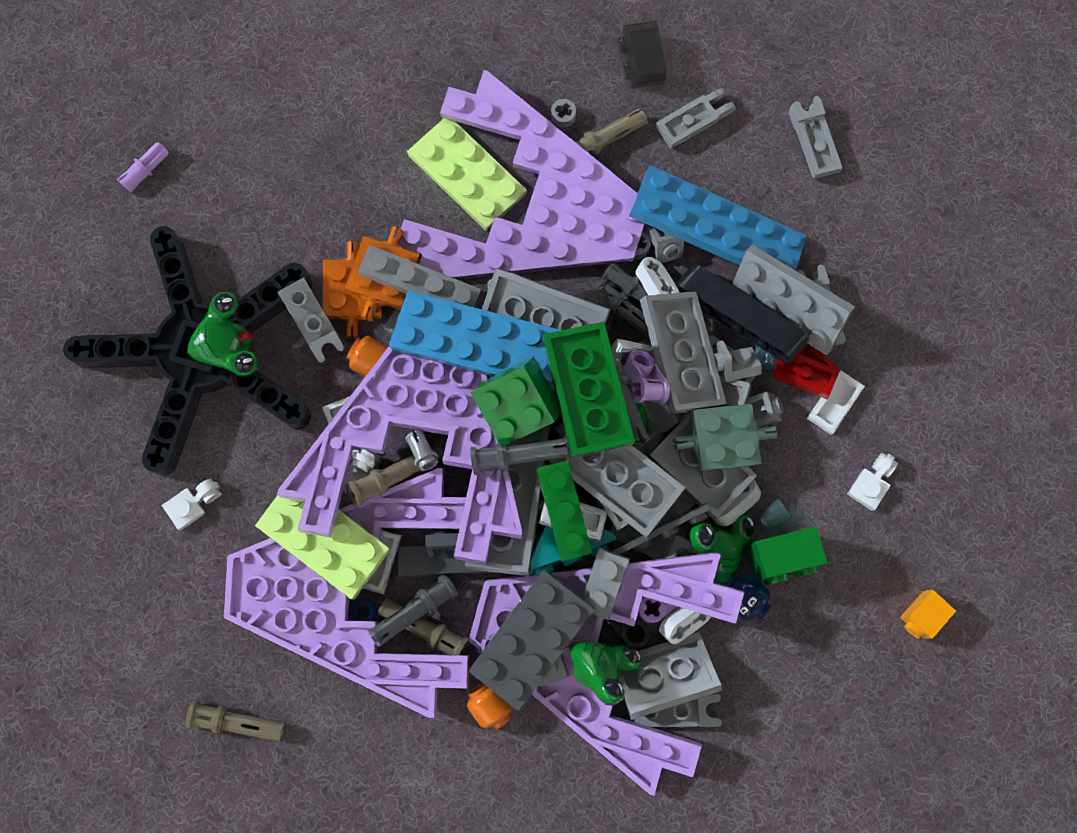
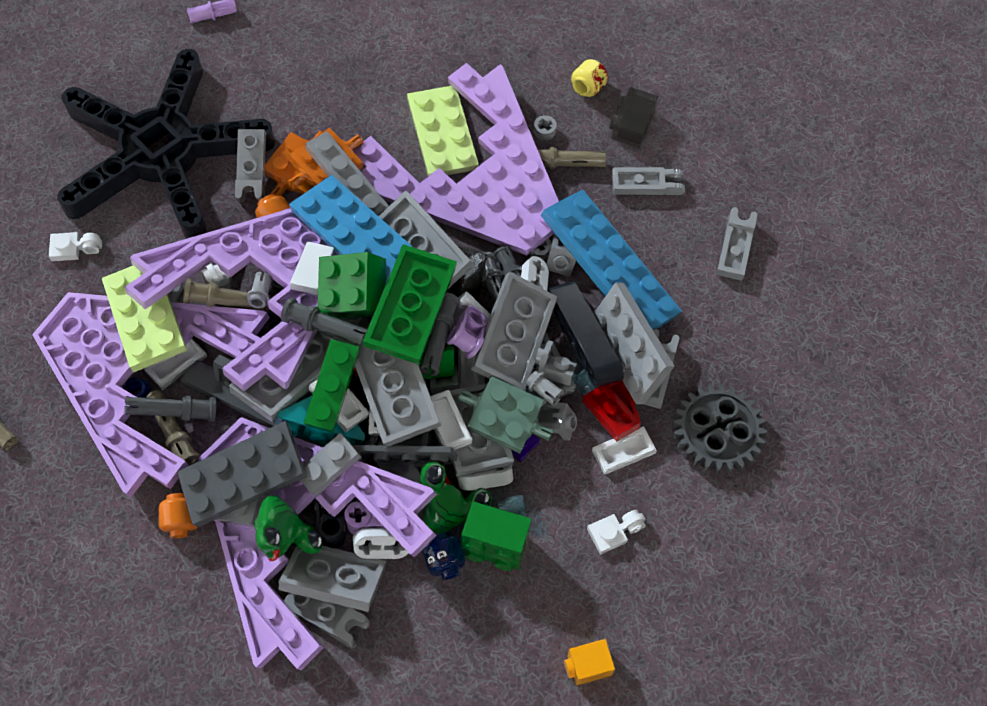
camera: 30 degrees right, 15 degrees down
(222, 341) = (173, 139): green head -> none
(459, 402) = (306, 273): none -> white tile
(574, 34) = (589, 78): none -> light yellow head
(690, 477) = (453, 429): none -> white tile
(744, 391) = (545, 388): none -> light grey pin
(930, 350) = (732, 450): none -> dark grey gear

